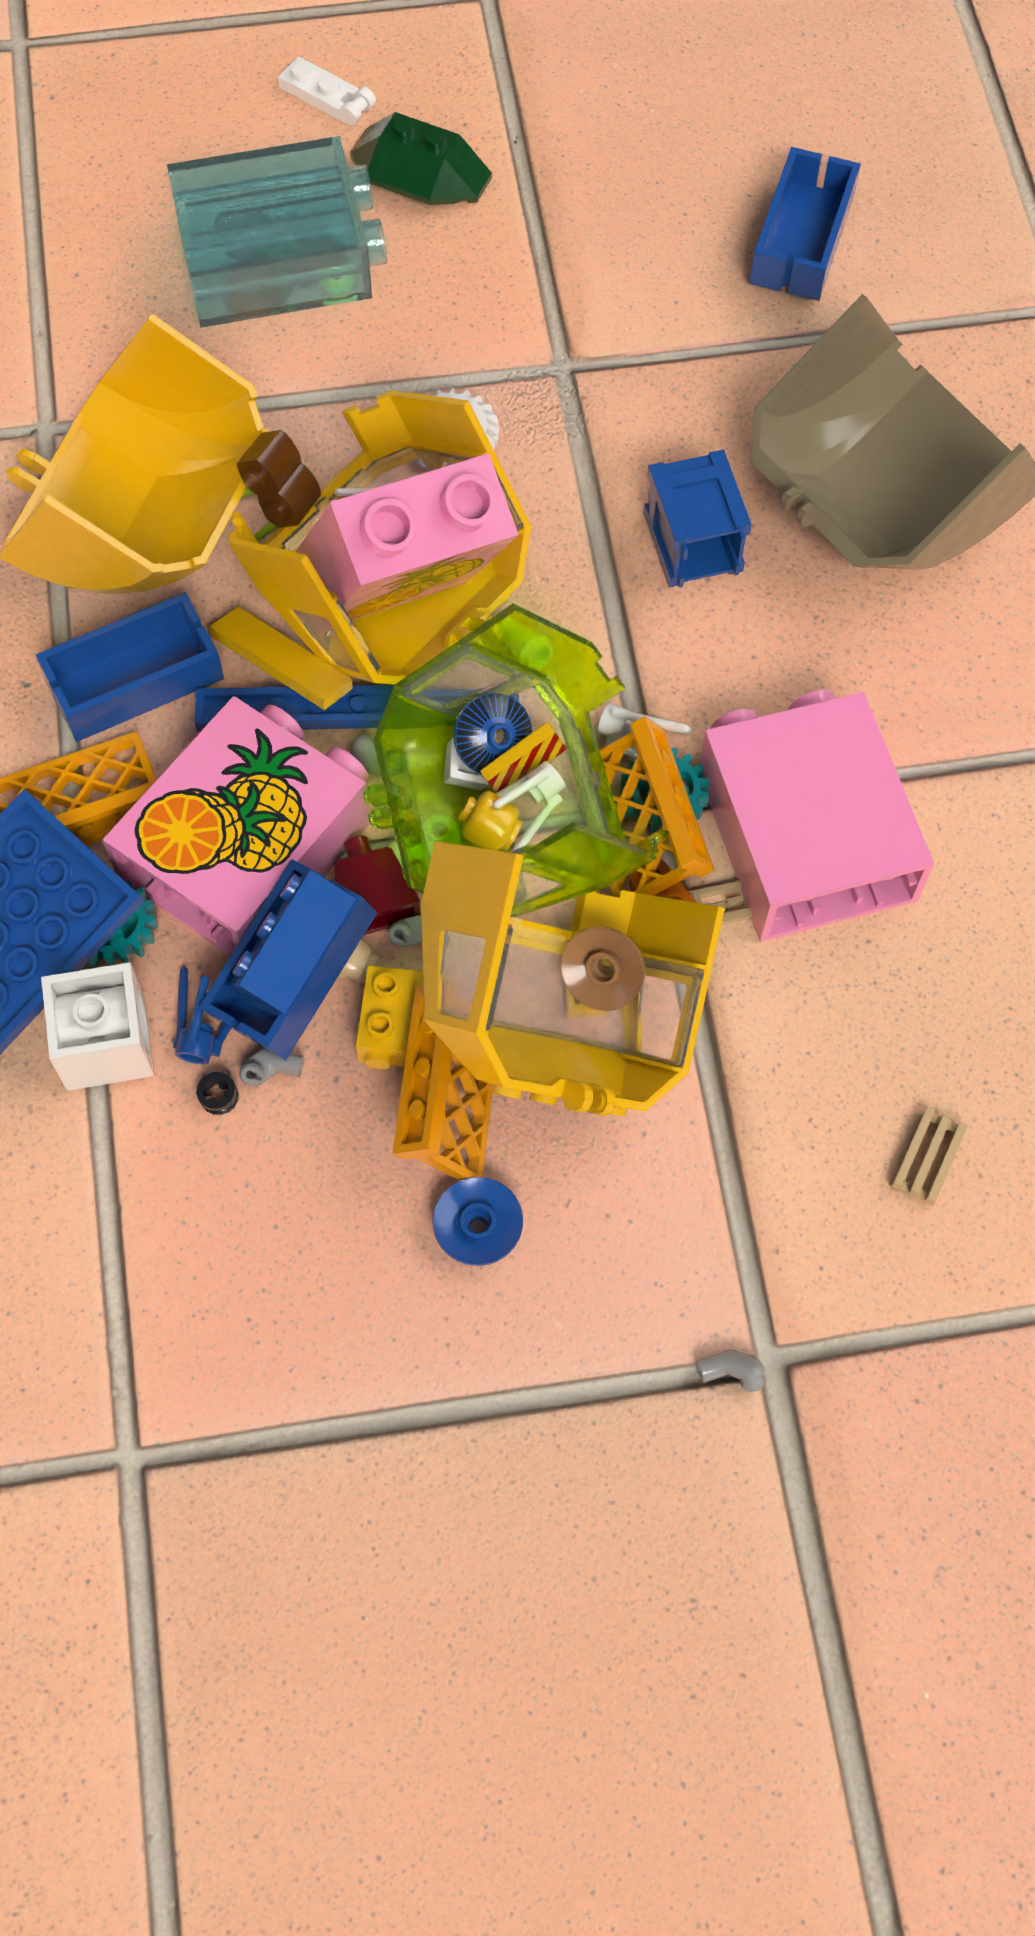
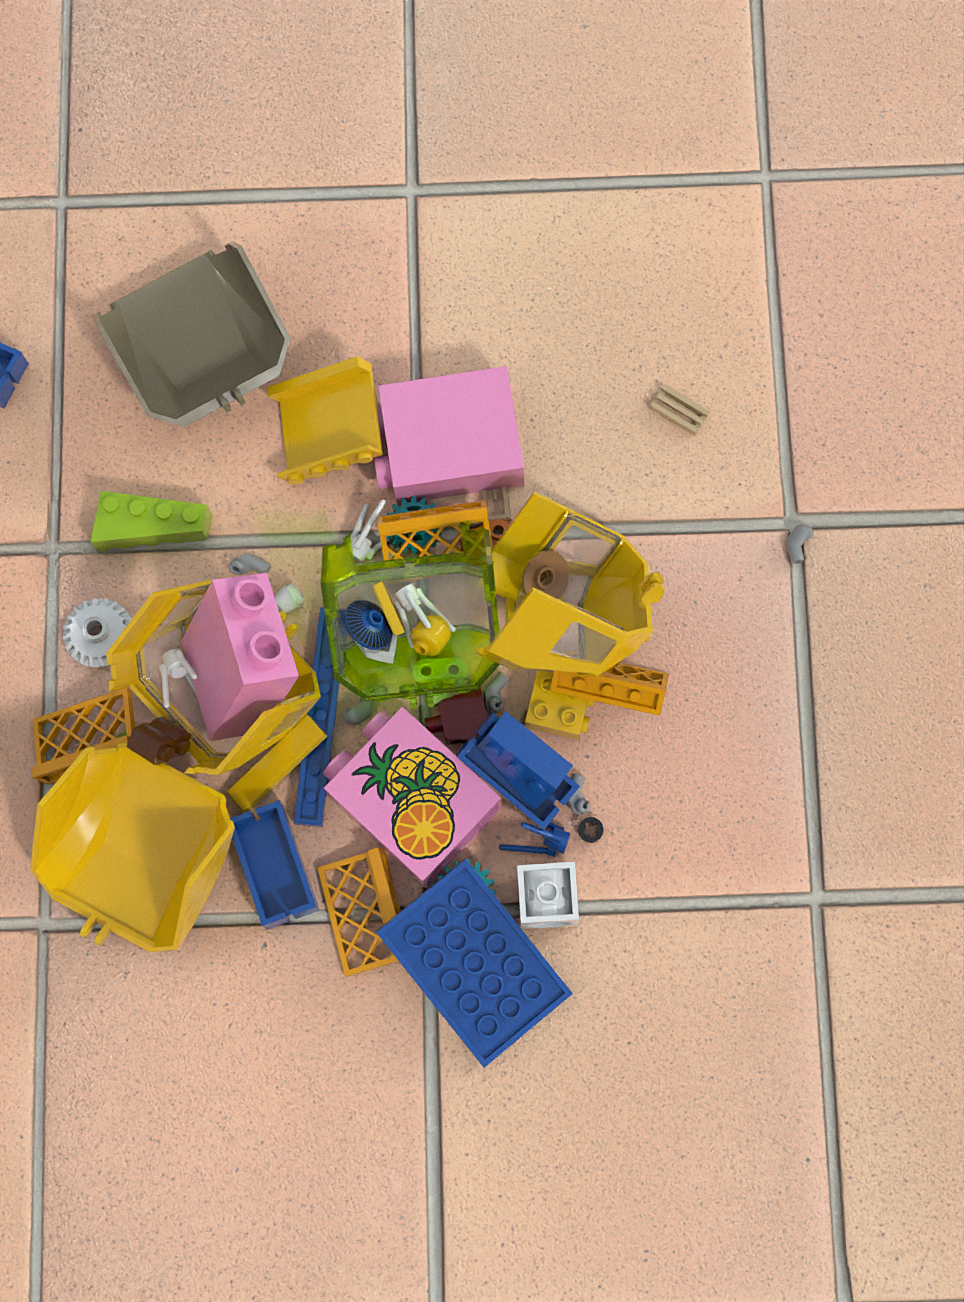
camera: 75 degrees left, 10 degrees up
(293, 388) = (52, 770): none -> light orange fence
(477, 1200) = (699, 663): blue dish -> none
(573, 588) = (248, 563): none -> light grey arm
(612, 449) = (143, 520): none -> lime wedge
(696, 518) = (213, 471): blue container -> none
(805, 649) = (328, 419): none -> yellow panel

